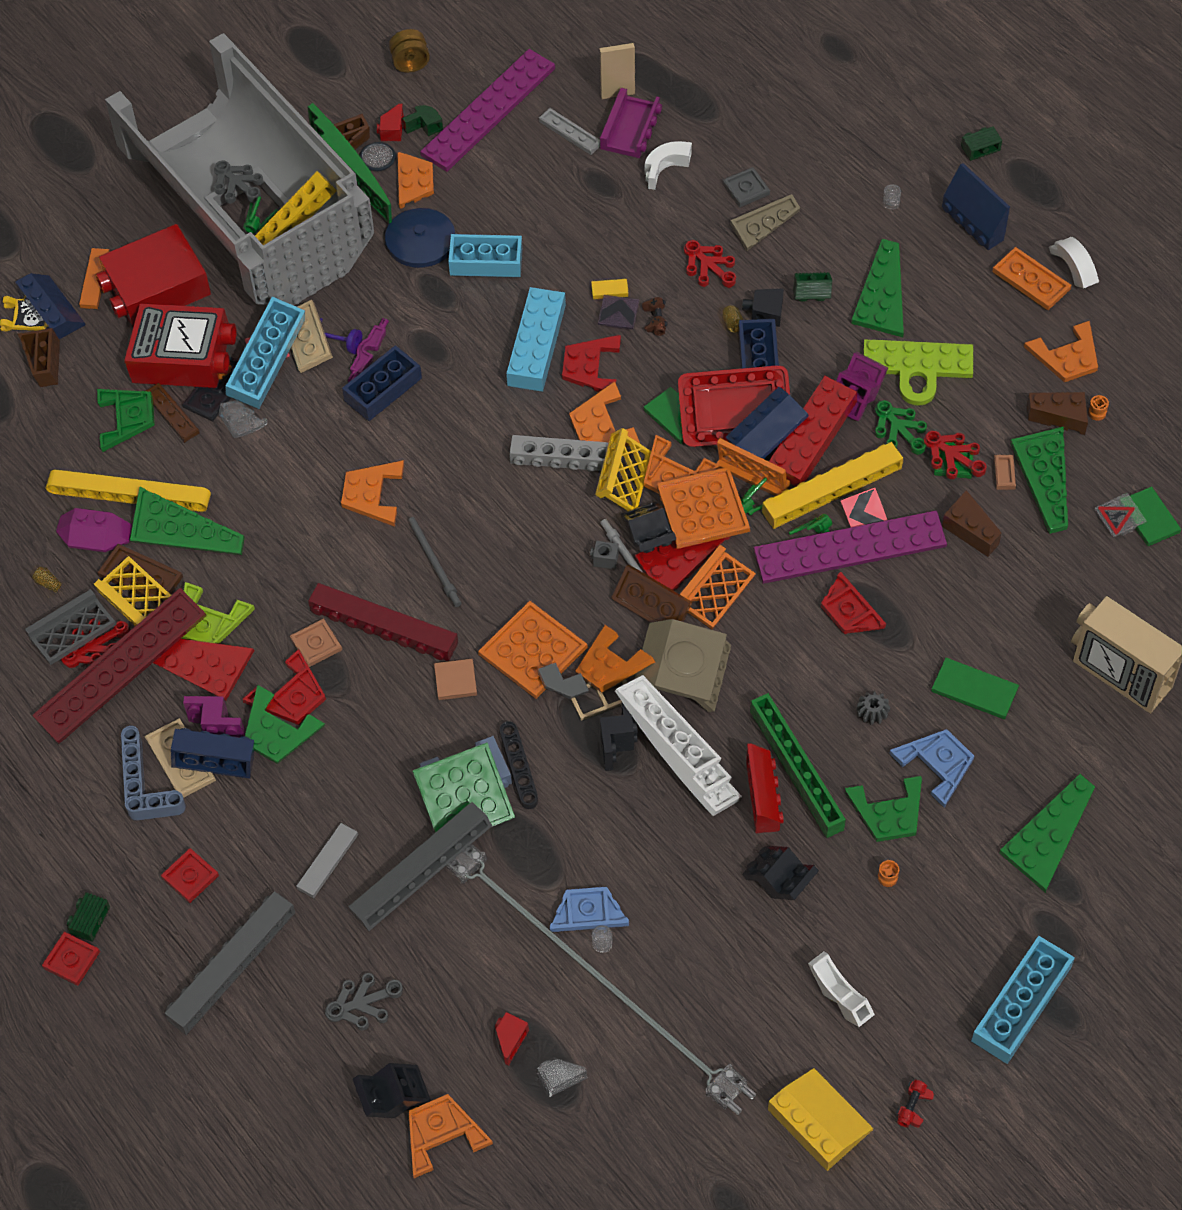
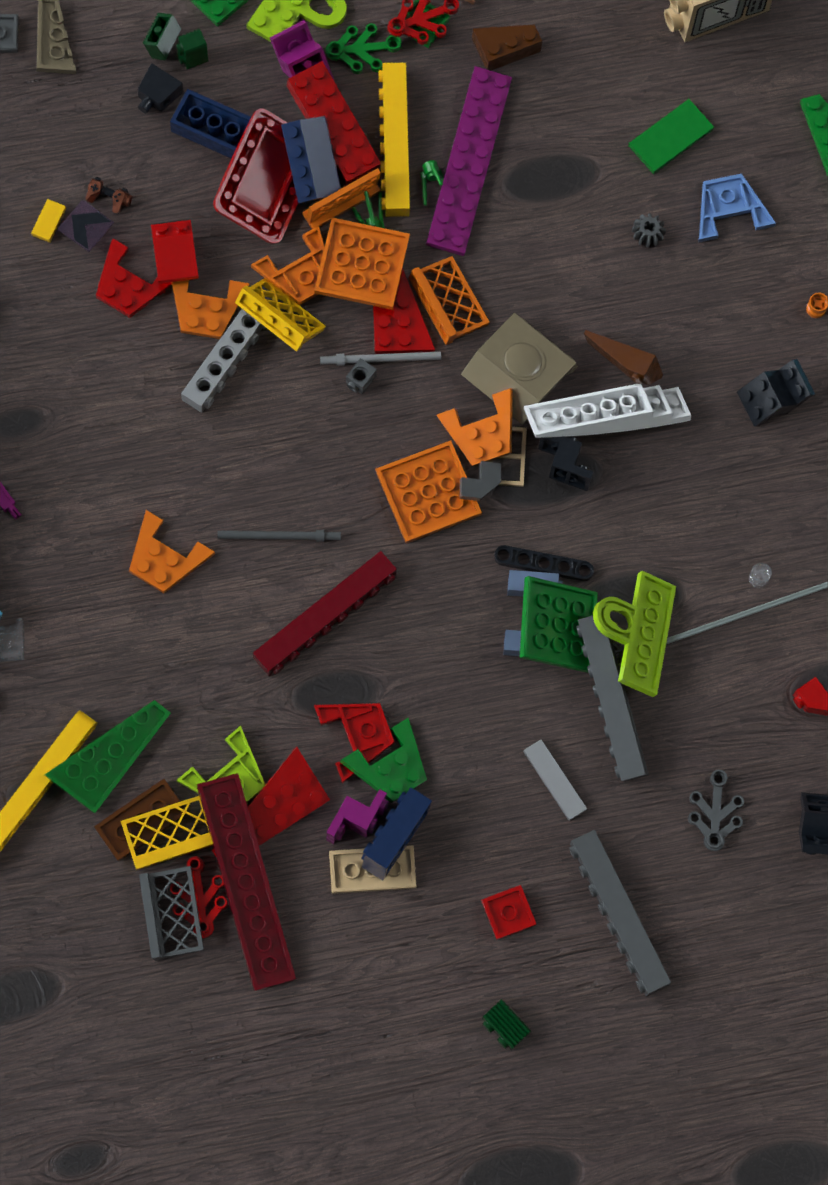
camera: 70 degrees left, 15 degrees up
(46, 579) = (96, 914): clear yellow cone -> none
(71, 958) = (541, 1059): red plate -> none
(93, 530) = (61, 847): magenta wedge -> none
(136, 781) = (381, 917): sand blue beam -> none
(316, 642) = (310, 686): nougat tile -> none
(382, 383) = (45, 486): dark blue brick -> none
(455, 679) = (421, 576): nougat tile -> none
(491, 864) = (646, 631): none -> lime plate
(536, 339) = (73, 317): medium azure brick -> none
(587, 910) = (724, 574): medium blue wing -> none
(632, 376) = (174, 251): none -> red slope
(648, 527) = (356, 322): black bracket -> none
(649, 597) = (436, 360): reddish brown plate -> none
(666, 412) = (228, 239): green tile -> none
(728, 278) = (71, 115): red plant -> none
(731, 318) = (154, 127): clear yellow brick -> none
(735, 742) = (635, 363): none -> reddish brown wedge
(763, 789) = (688, 367): red slope -> none
(797, 765) = (675, 323): green brick -> none
(814, 309) = (192, 49): none -> dark green brick
(849, 608) = (533, 195): red wing -> none
(863, 508) = (439, 126): piece -> none
(889, 818) = (762, 273): green wing -> none

